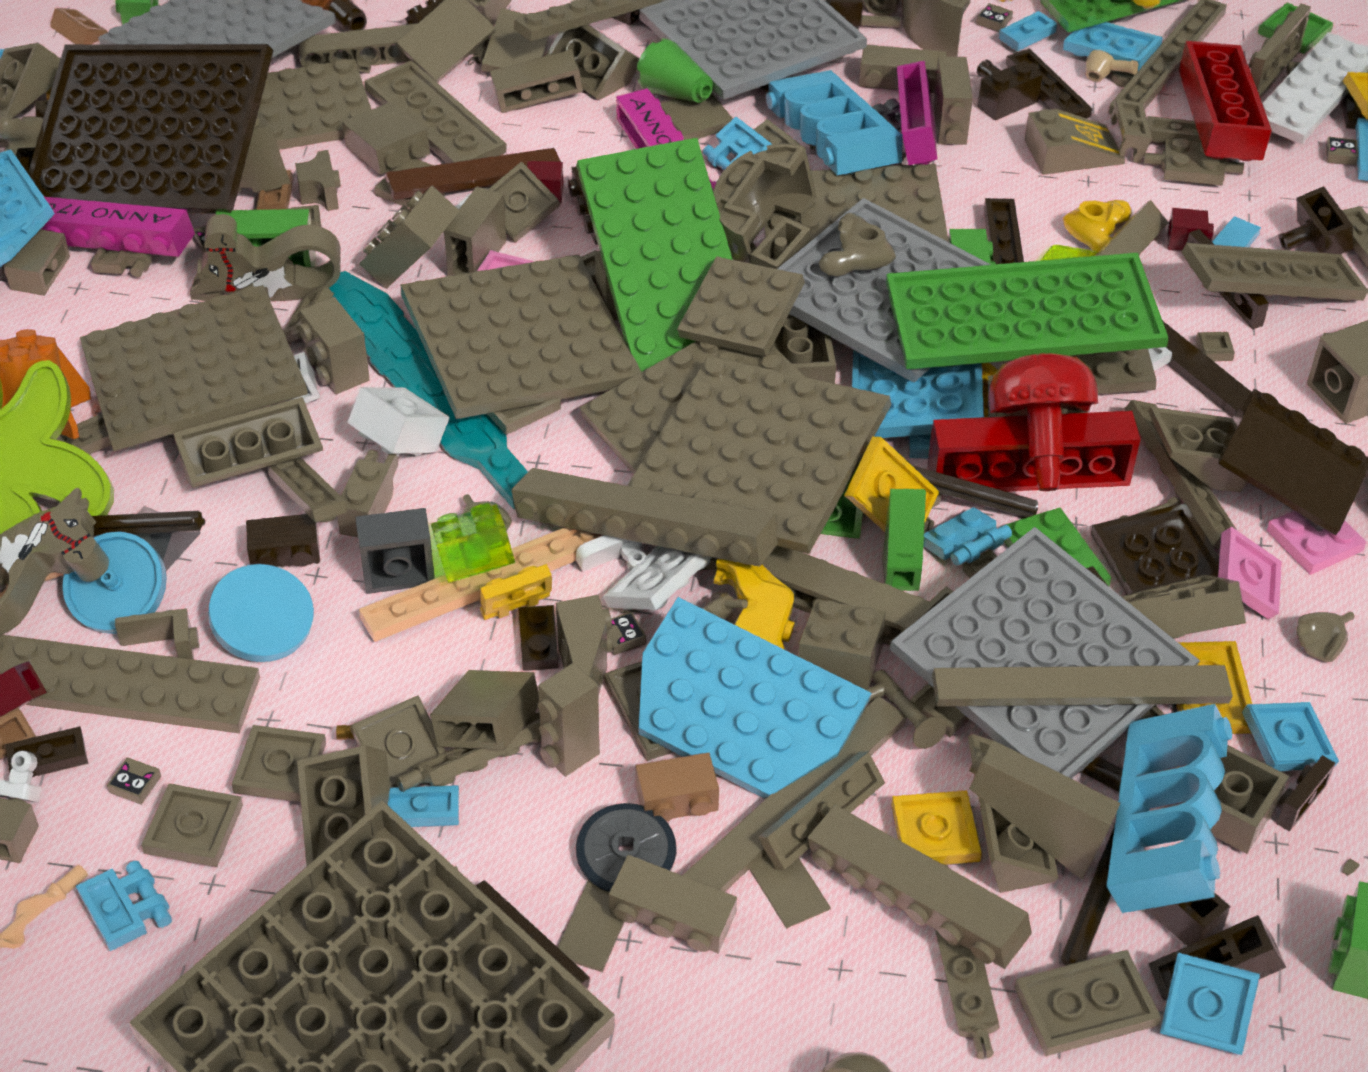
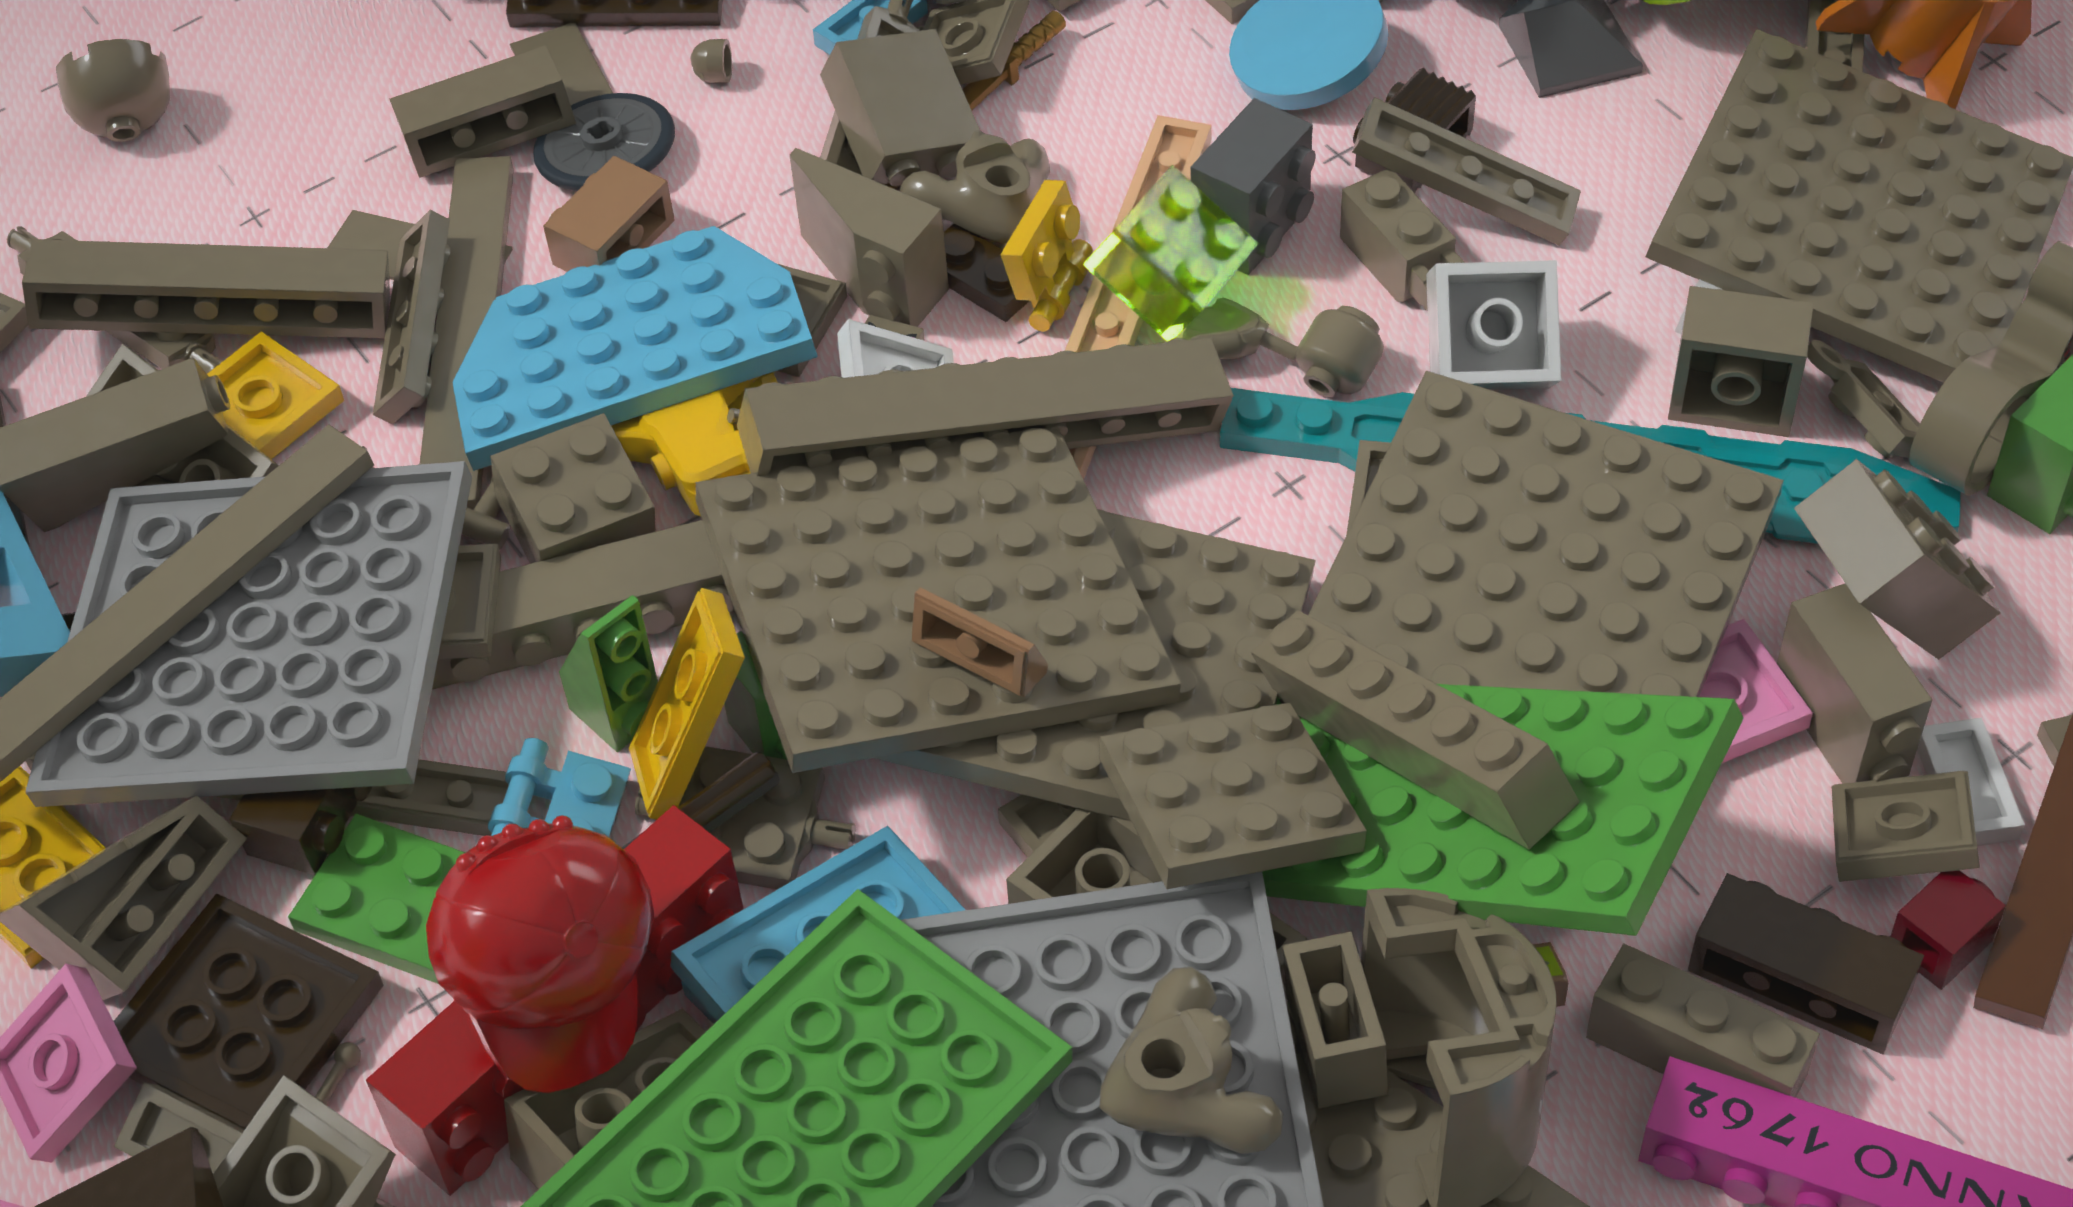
camera: 140 degrees right, 5 degrees up
(247, 442) = (1616, 174): dark tan slope -> none
(454, 475) = (1339, 351): none -> dark tan head
(492, 644) = (990, 185): none -> dark tan head
(520, 849) = (712, 61): none -> dark tan hinge
(569, 719) = (774, 122): dark tan brick -> none
(662, 267) = (1417, 728): none -> dark tan brick
(776, 385) = (976, 644): none -> medium nougat slope

